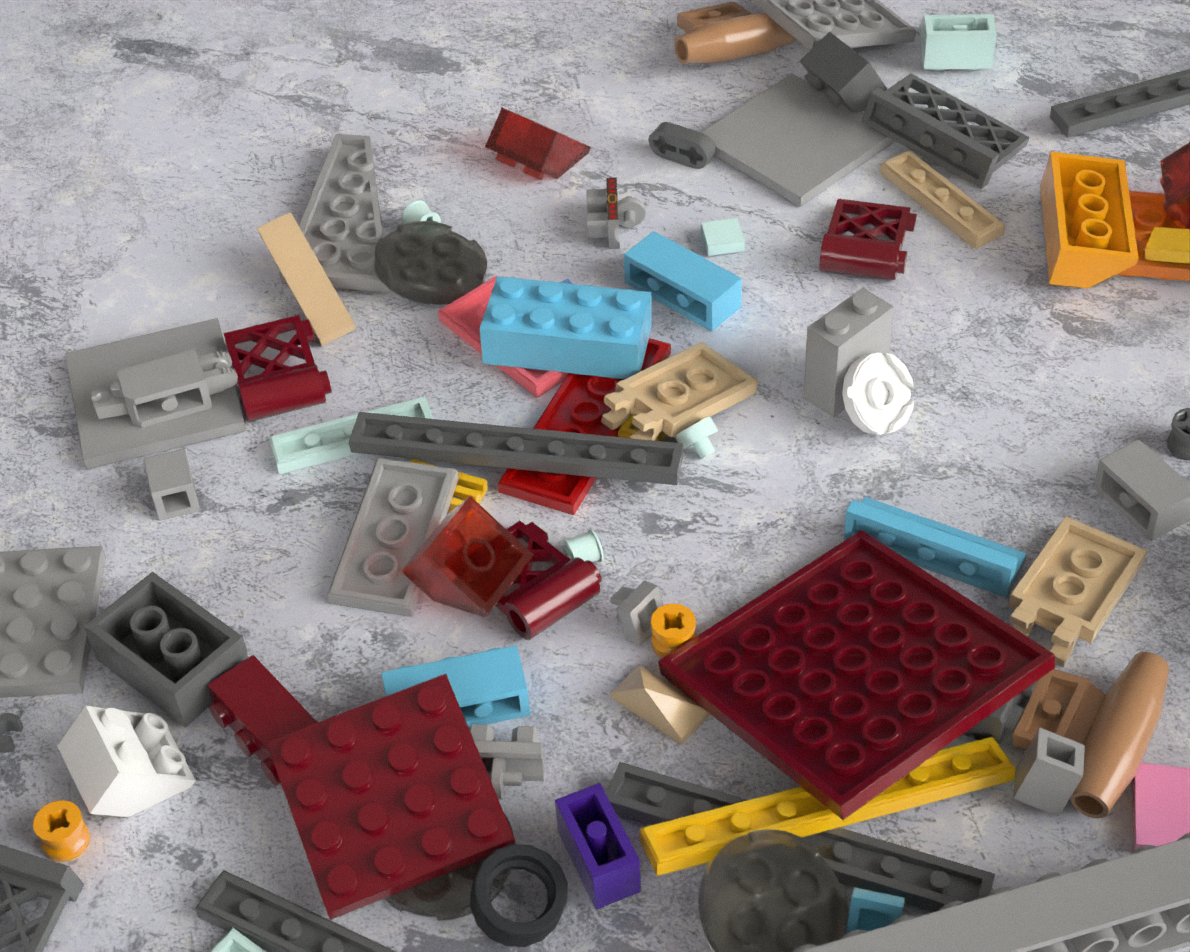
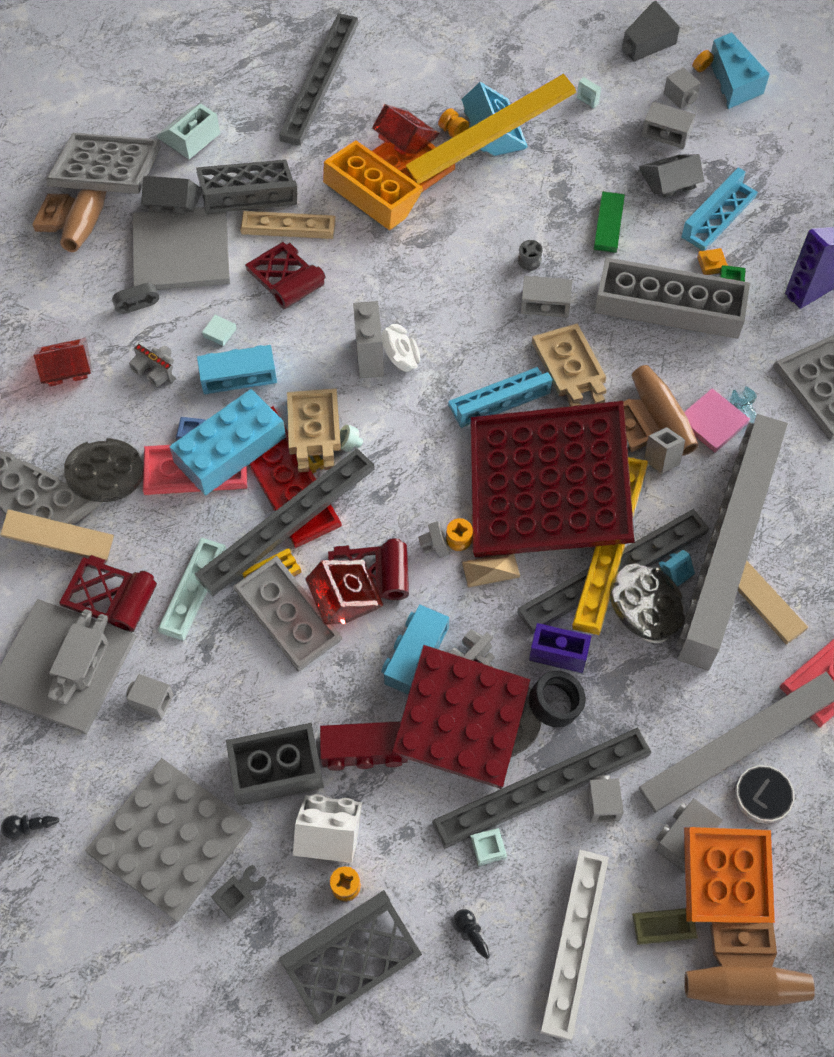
camera: 55 degrees left, 15 degrees up
(419, 211) = (60, 451): light aqua axle -> none
(584, 546) = (374, 536): light aqua axle -> none

